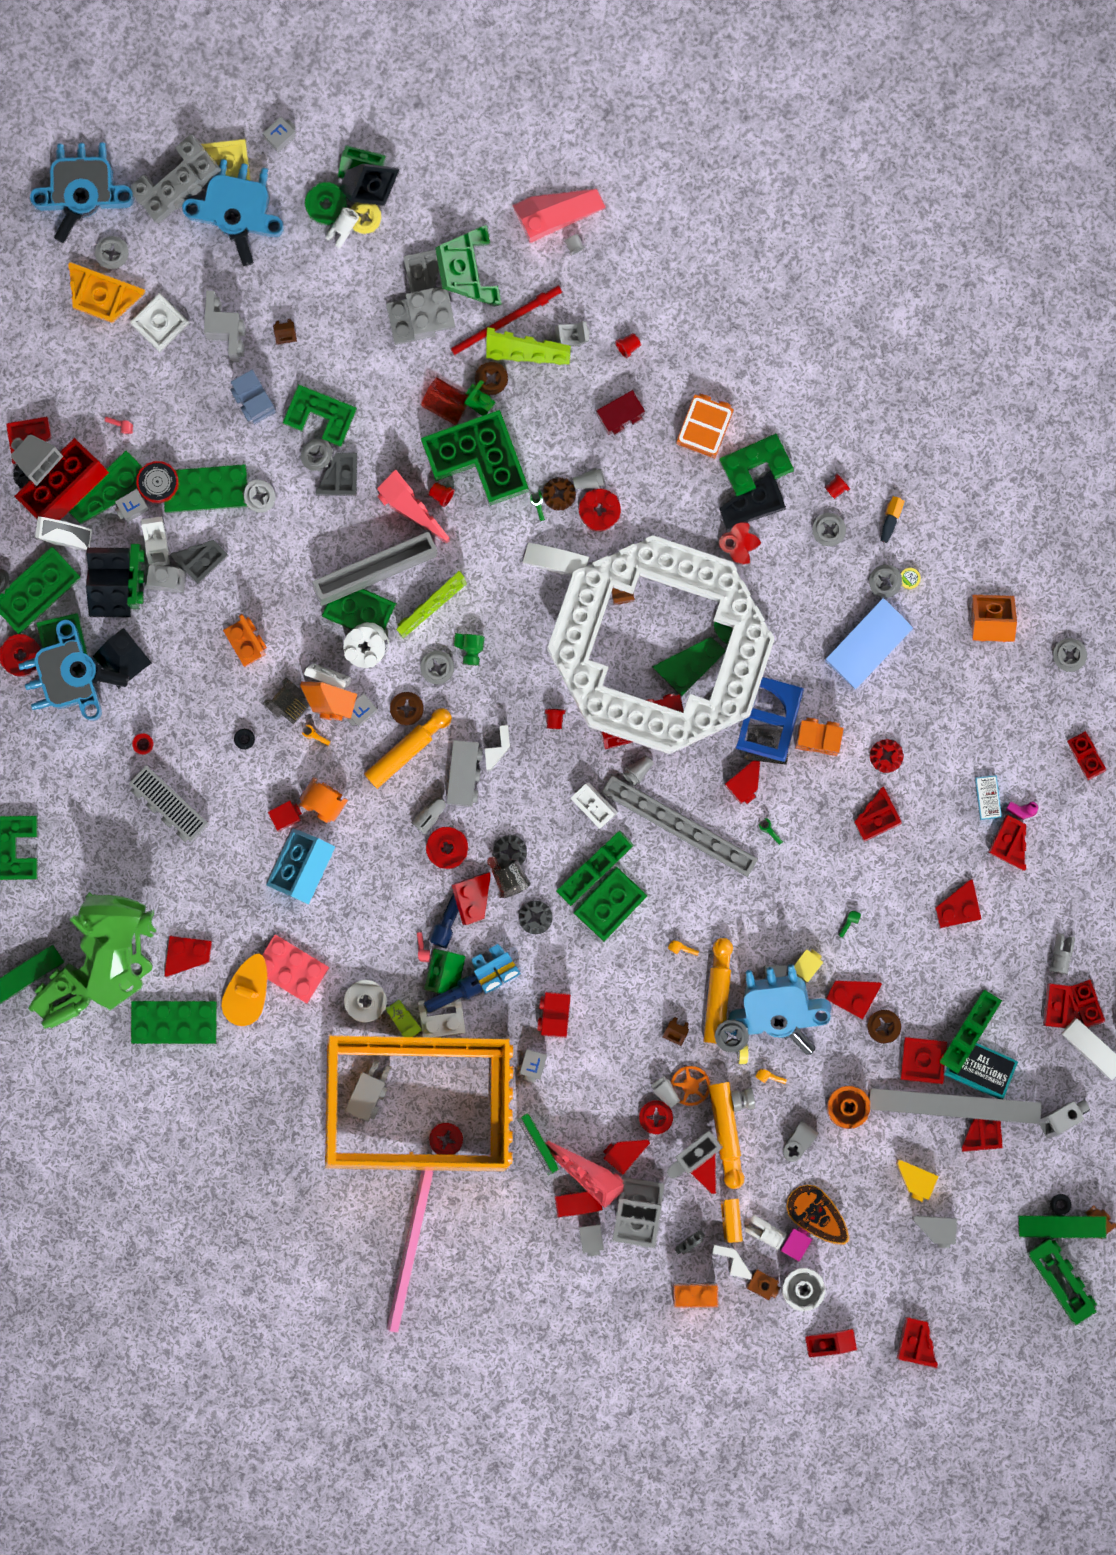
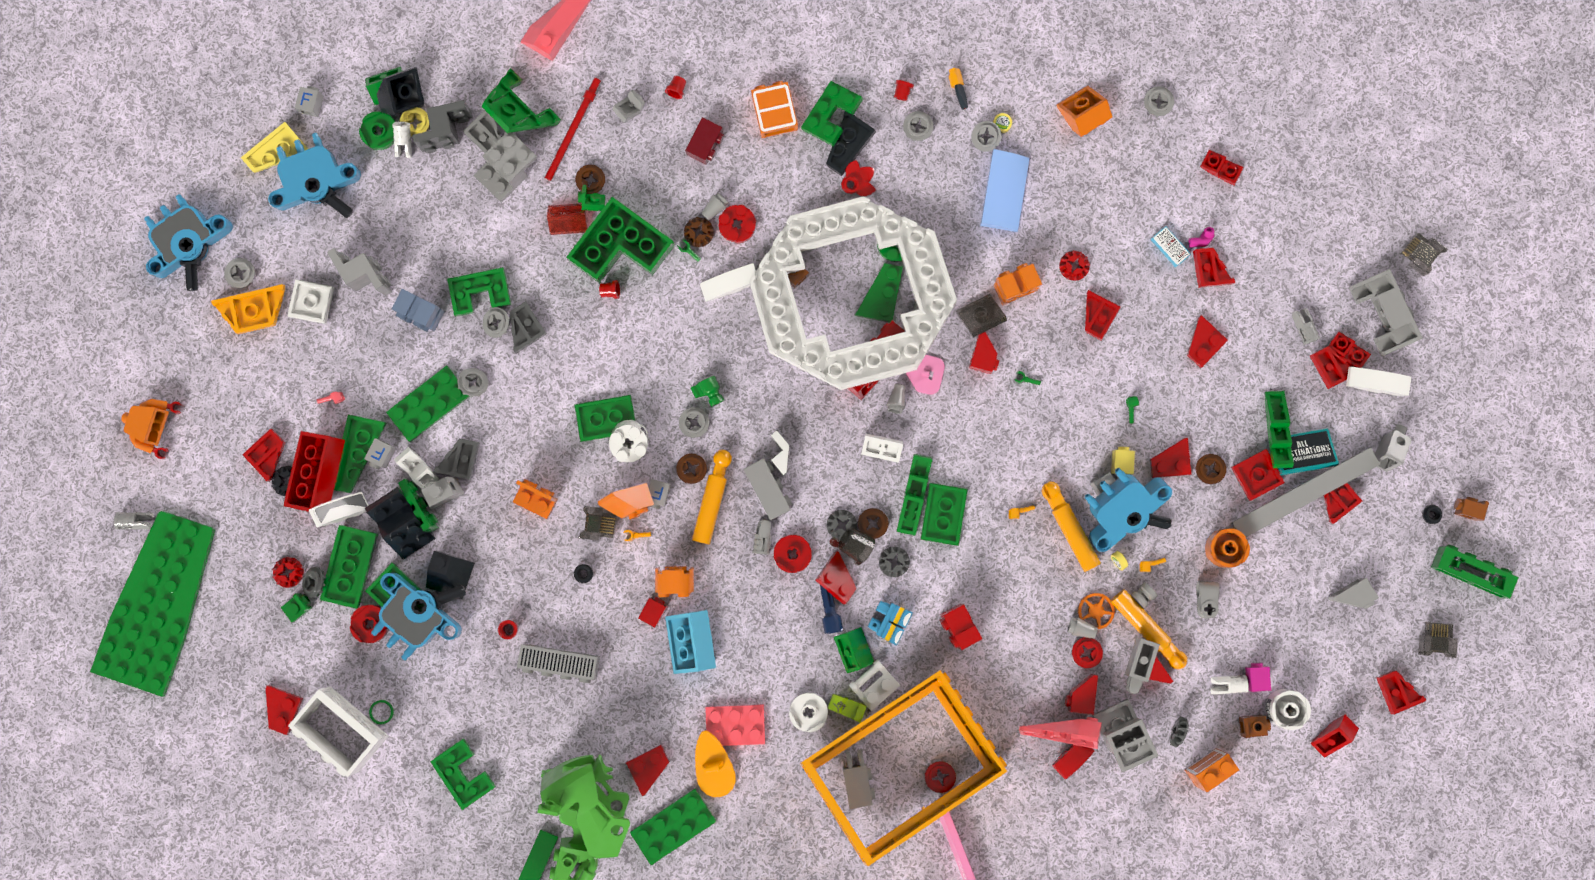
camera: 30 degrees left, 0 degrees up
(35, 457) = (279, 465): light grey torso -> none
(157, 482) = (387, 422): tile -> none
(179, 184) = (255, 186): light grey bracket -> none
(284, 332) = (411, 246): reddish brown tile -> none
(327, 676) = (615, 484): white plate -> none
(374, 568) = (596, 379): light grey brick -> none
(387, 241) = (442, 125): none -> dark grey bracket
(401, 498) = (580, 313): coral wedge -> none
(423, 955) = (828, 647): coral hand -> none
(435, 601) = (659, 373): lime wing -> none
(462, 990) = (876, 654): dark blue piece -> none
(508, 347) = (602, 139): lime wing -> none
(533, 1065) = (968, 676): light grey brick -> none
(538, 1144) = (1014, 734): green tile -> none
(544, 860) = (872, 514): none -> reddish brown gear
(554, 718) = (808, 402): red piece -> none
(574, 244) = (586, 39): light grey axle -> none
(591, 1239) = (1102, 779): light grey brick -> none
(676, 761) = (920, 377): none -> bright pink piece
(676, 1032) = (1059, 578): reddish brown tile -> none
(679, 825) = (956, 420): light grey tile -> none
(731, 1220) = (1197, 693): light orange brick -> none
(732, 1044) = (1110, 558): dark grey gear -> none
(737, 1267) = (1225, 725): white slope -> none
(790, 698) = (974, 269): blue window -> none
(817, 1214) = (1259, 645): shield -> none
(917, 1180) = (1315, 568): yellow slope -> none
(986, 1320) = (1438, 639): none -> clear smoke piece
(1062, 1226) = (1447, 530): green slope -> none

